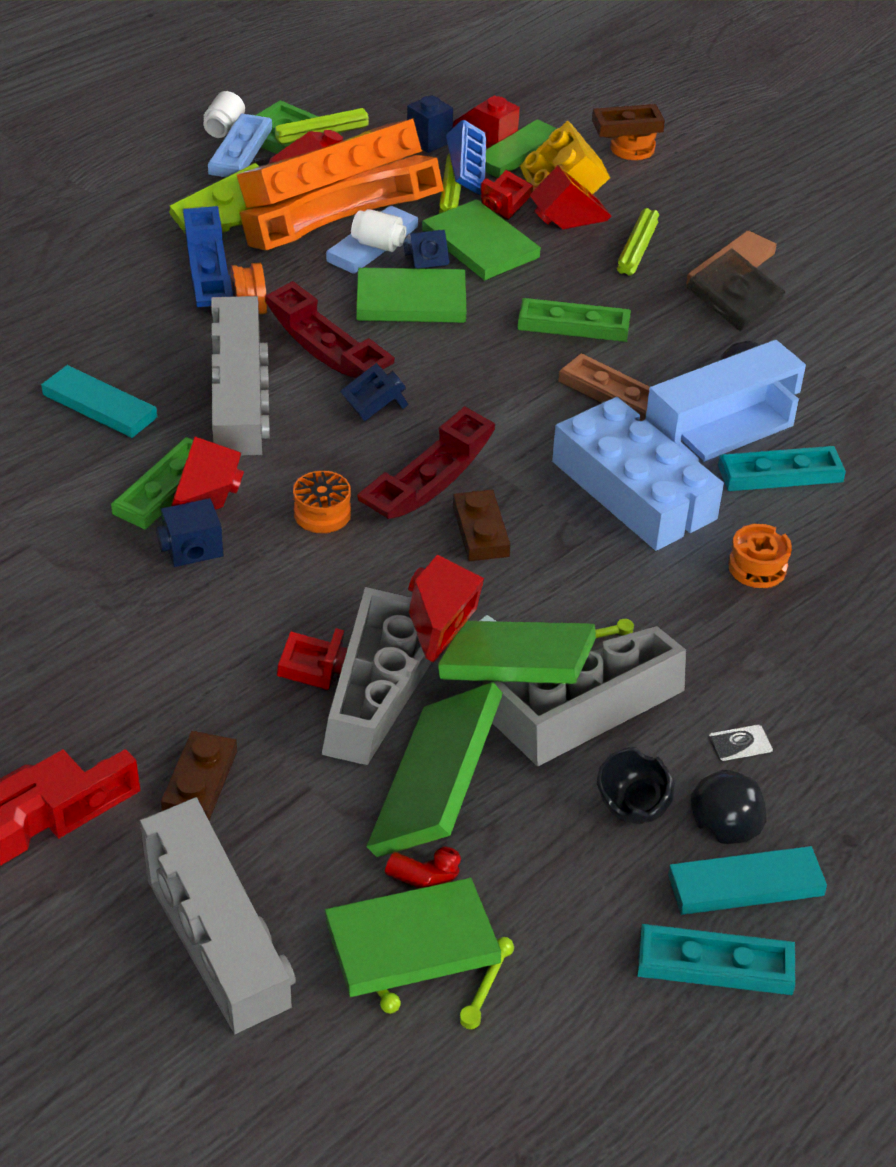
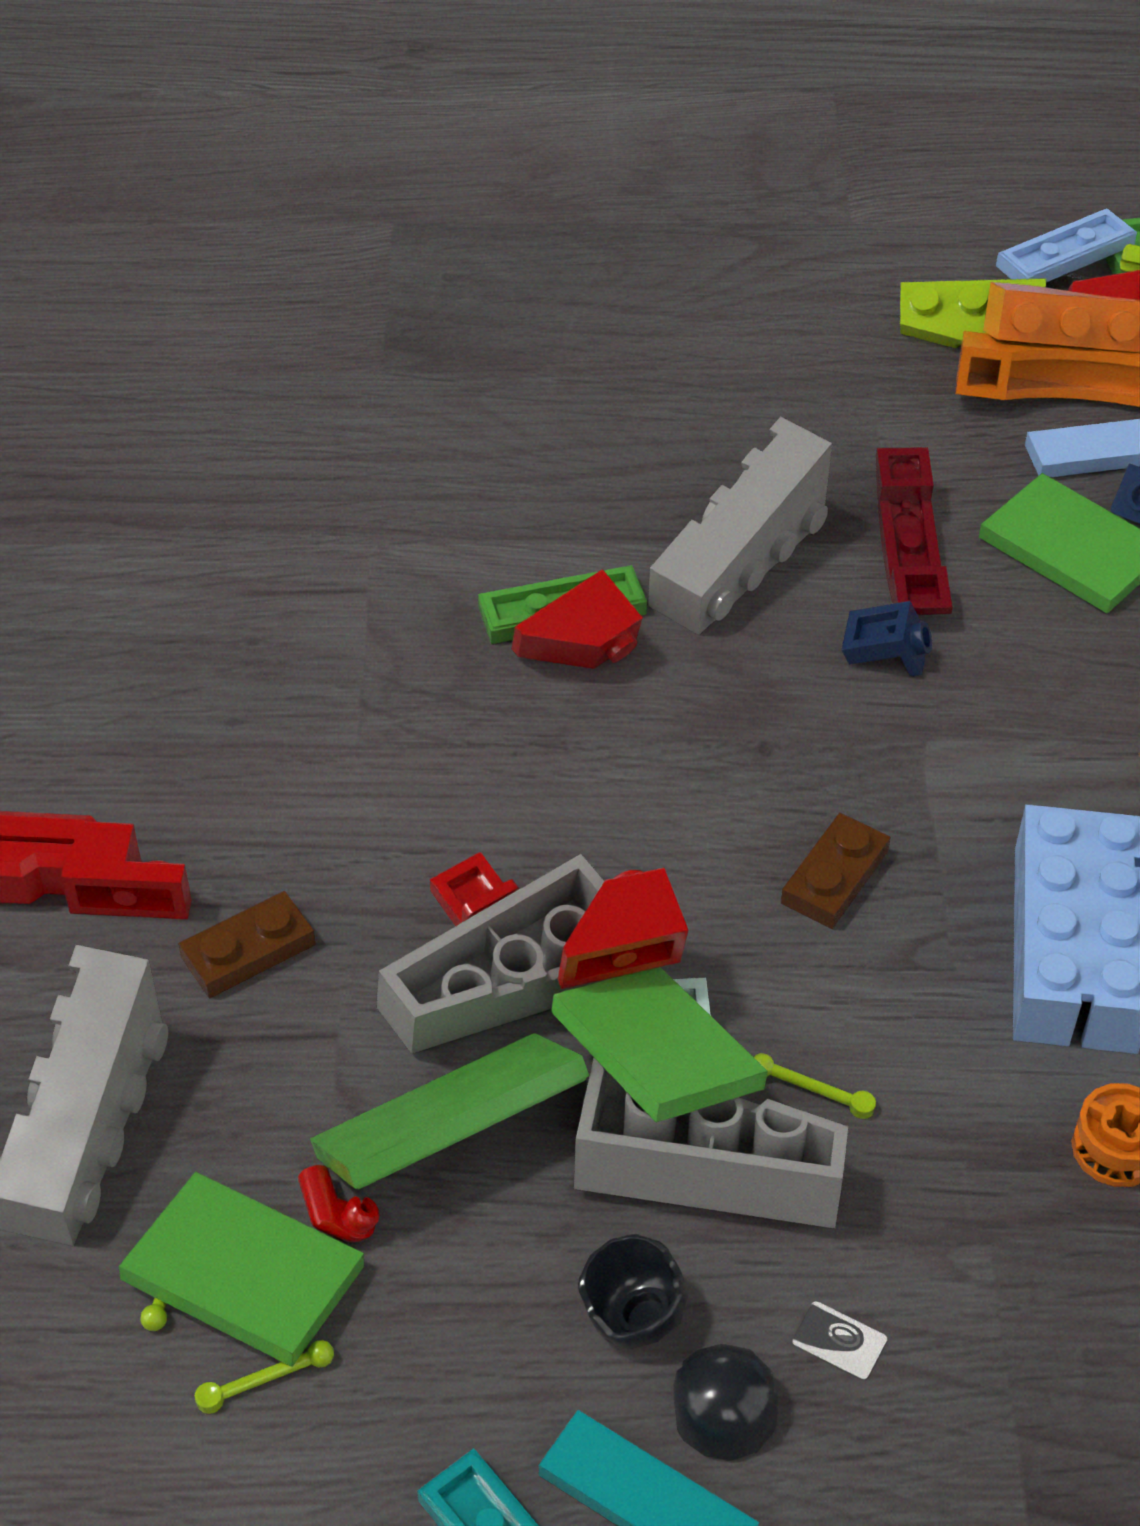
camera: 45 degrees right, 5 degrees up
(99, 401) = (595, 473): teal tile -> none
(190, 532) = (513, 676): dark blue brick -> none
(206, 254) = (881, 372): blue slope -> none
(223, 114) = (1093, 195): white brick -> none
(250, 282) = (874, 426): orange wheel -> none
(322, 505) = (685, 729): orange wheel -> none
(378, 230) = (1103, 438): white brick -> none
(433, 470) = (845, 771): dark red slope -> none

